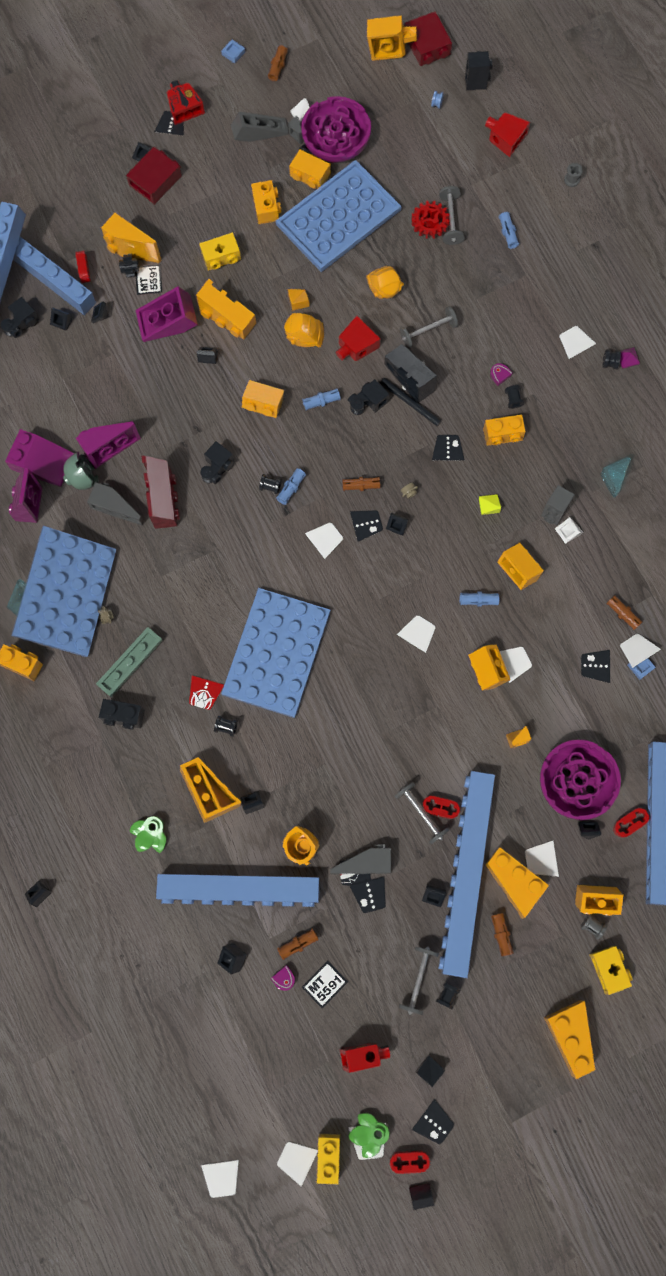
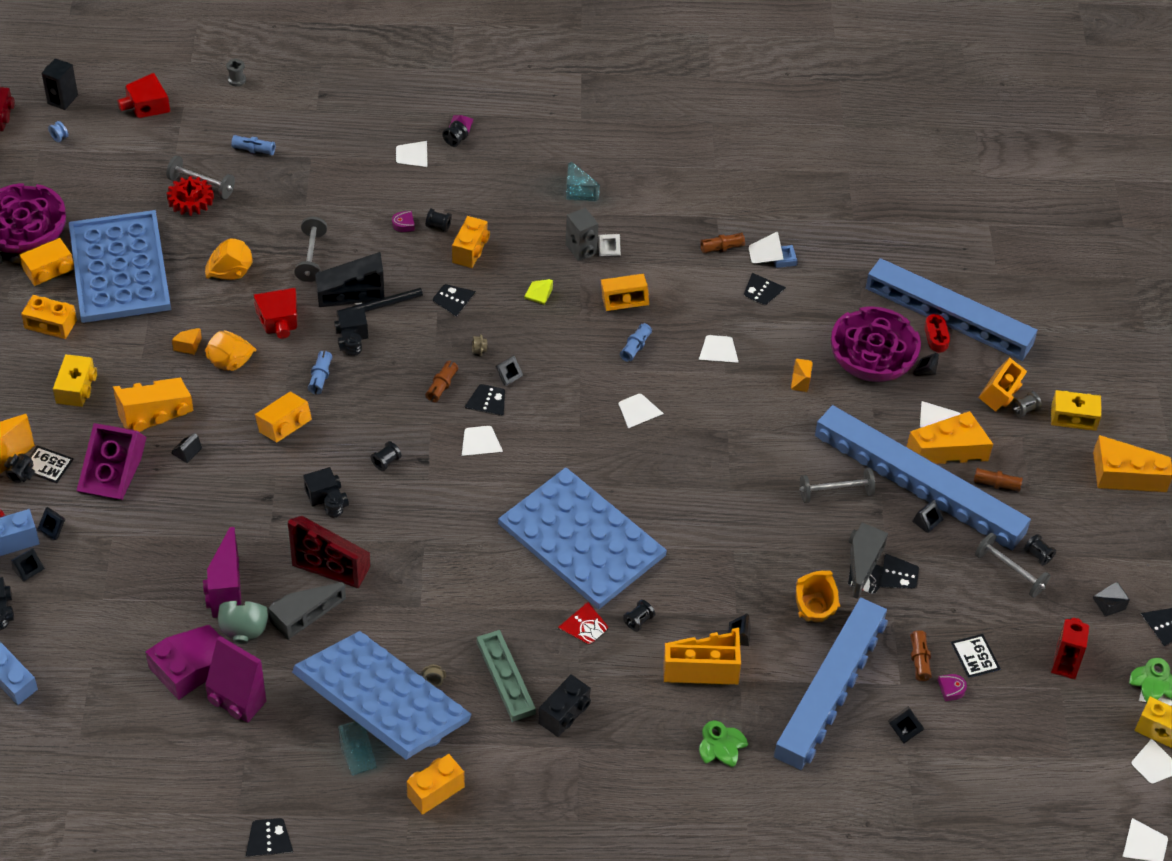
camera: 70 degrees left, 25 degrees down
(291, 486) = (395, 431): medium blue pin -> none
(442, 803) = (834, 467): red beam -> none
(489, 667) = (715, 362): light orange brick -> none

